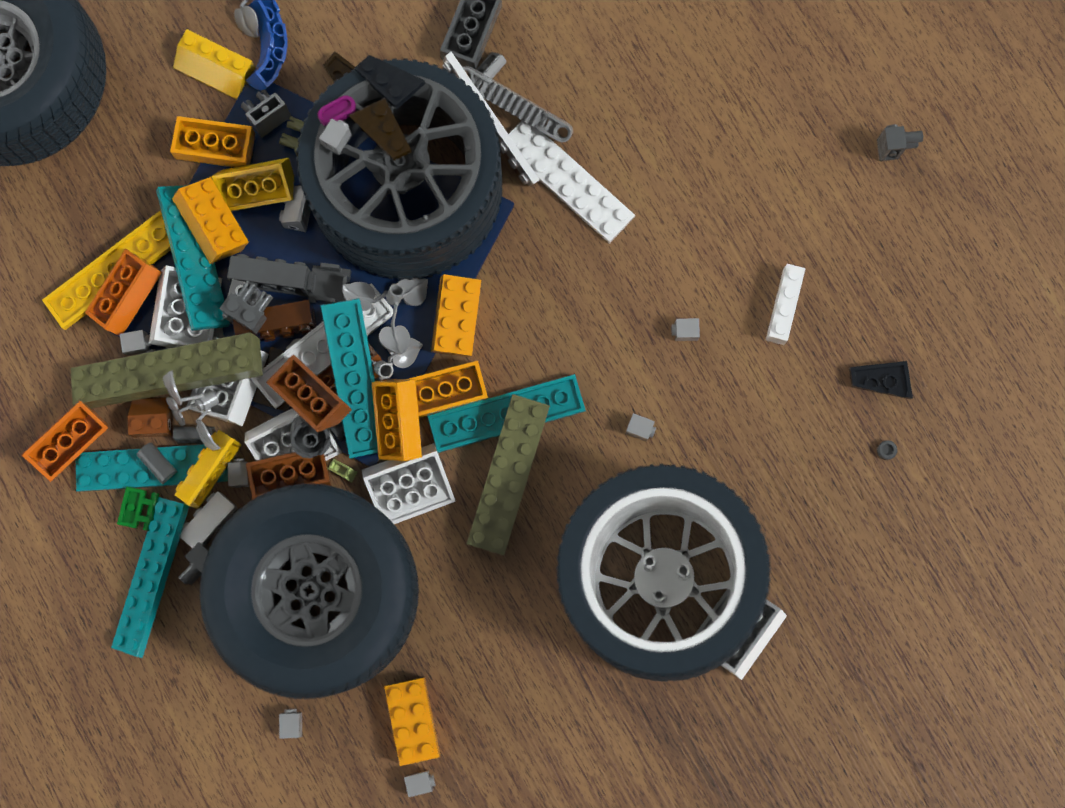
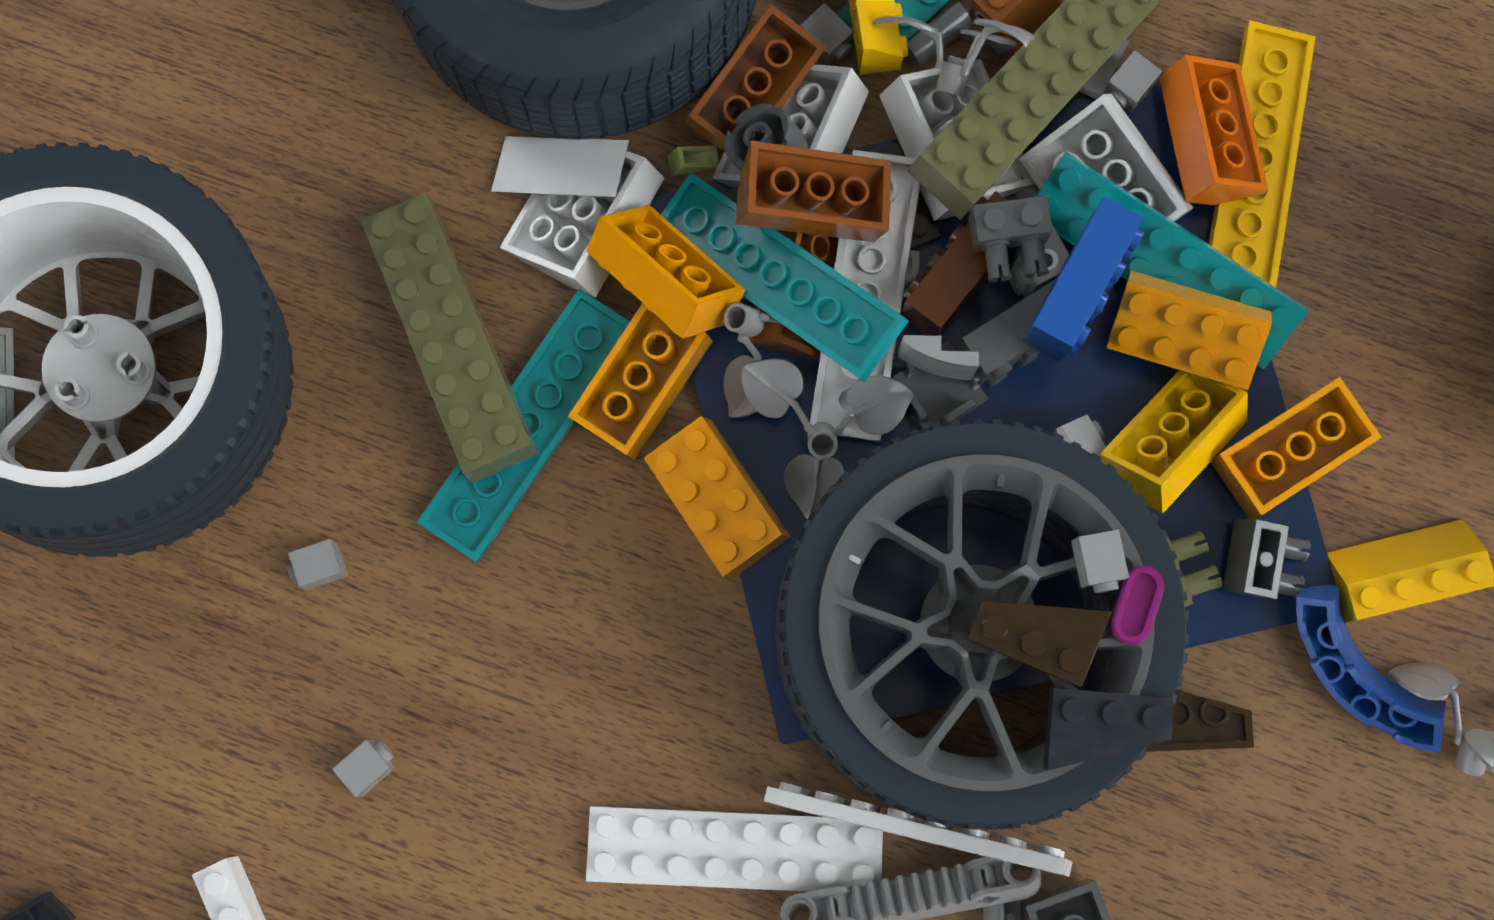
camera: 140 degrees right, 0 degrees up
(236, 264) = (1086, 274): none -> blue brick
(320, 288) = (926, 354): none -> light grey slope
(401, 509) = (560, 166): none -> white sticker

